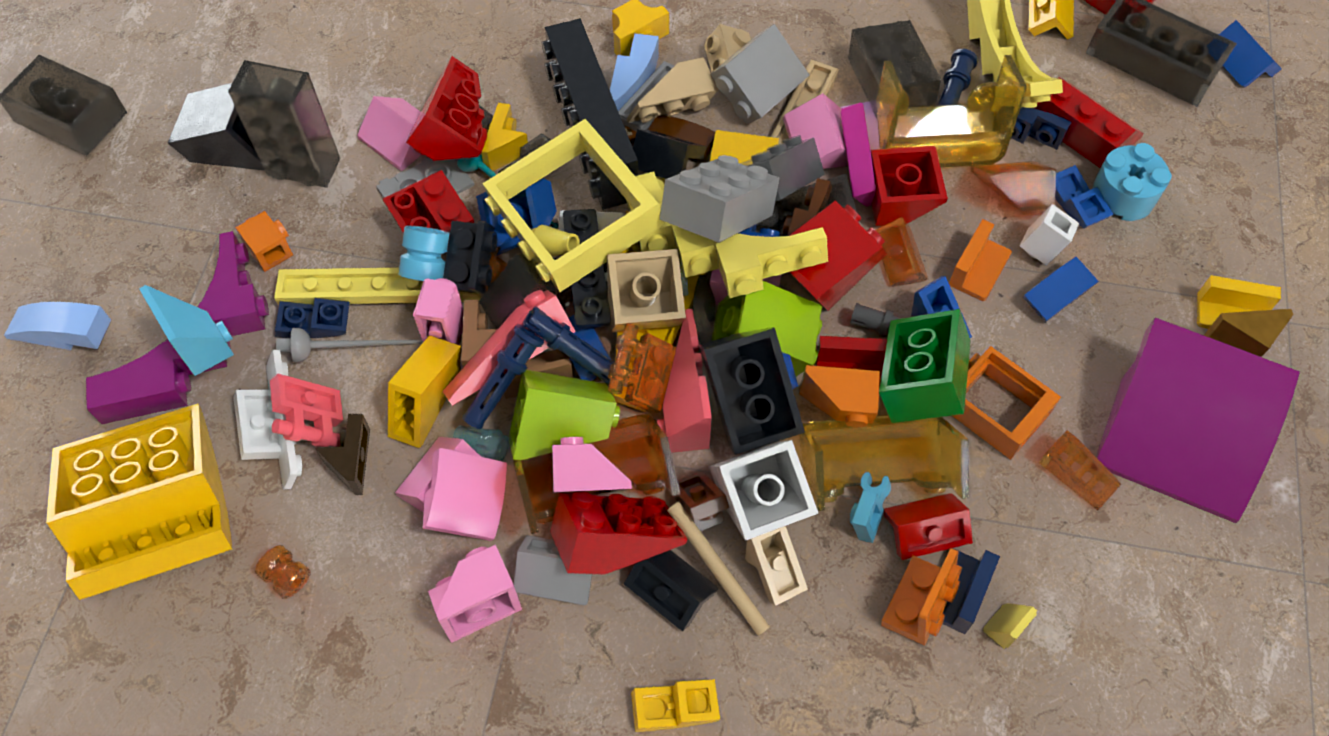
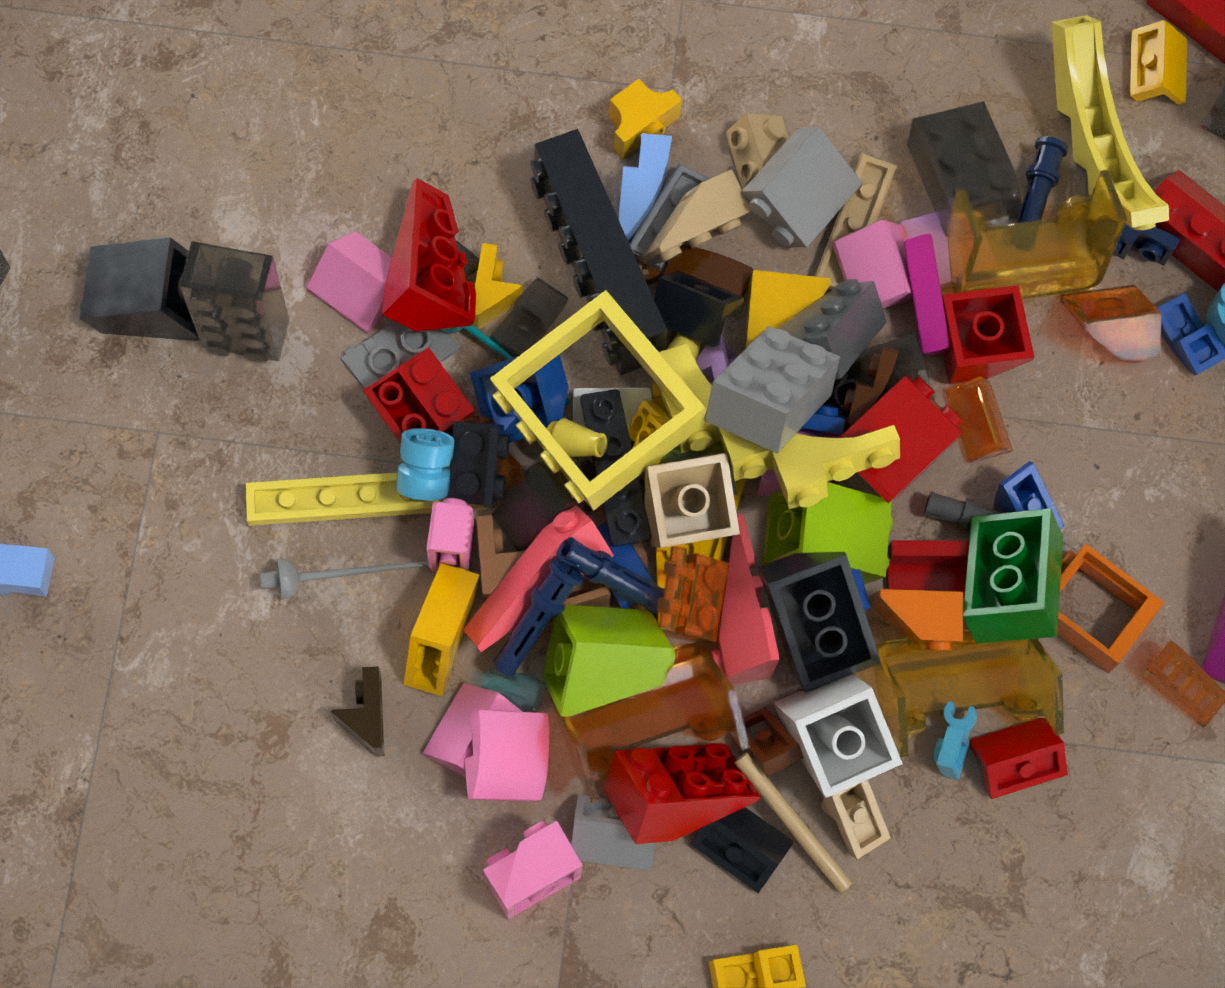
camera: 10 degrees left, 10 degrees up
(137, 501) = (137, 780): yellow slope -> none
(161, 376) = (126, 631): magenta arch -> none
(189, 330) = (170, 581): medium azure slope -> none
(255, 422) = (266, 679): white bracket -> none
(265, 240) = (221, 443): orange brick -> none
(283, 572) = (314, 854): clear orange wheel -> none
(306, 401) = (311, 654): coral plate -> none
(319, 320) = (301, 542): dark blue slope -> none
(584, 468) = (641, 726): bright pink slope -> none
(703, 309) = (755, 508): clear smoke slope -> none
(921, 598) = (1011, 842): orange bracket -> none
(973, 586) = (1055, 828): dark blue panel -> none
(980, 264) = (1073, 430): orange panel -> none
(1009, 623) = (1107, 863): light yellow slope -> none
(1049, 234) = (1153, 393): white brick -> none
(1060, 289) = (1166, 460): blue slope -> none

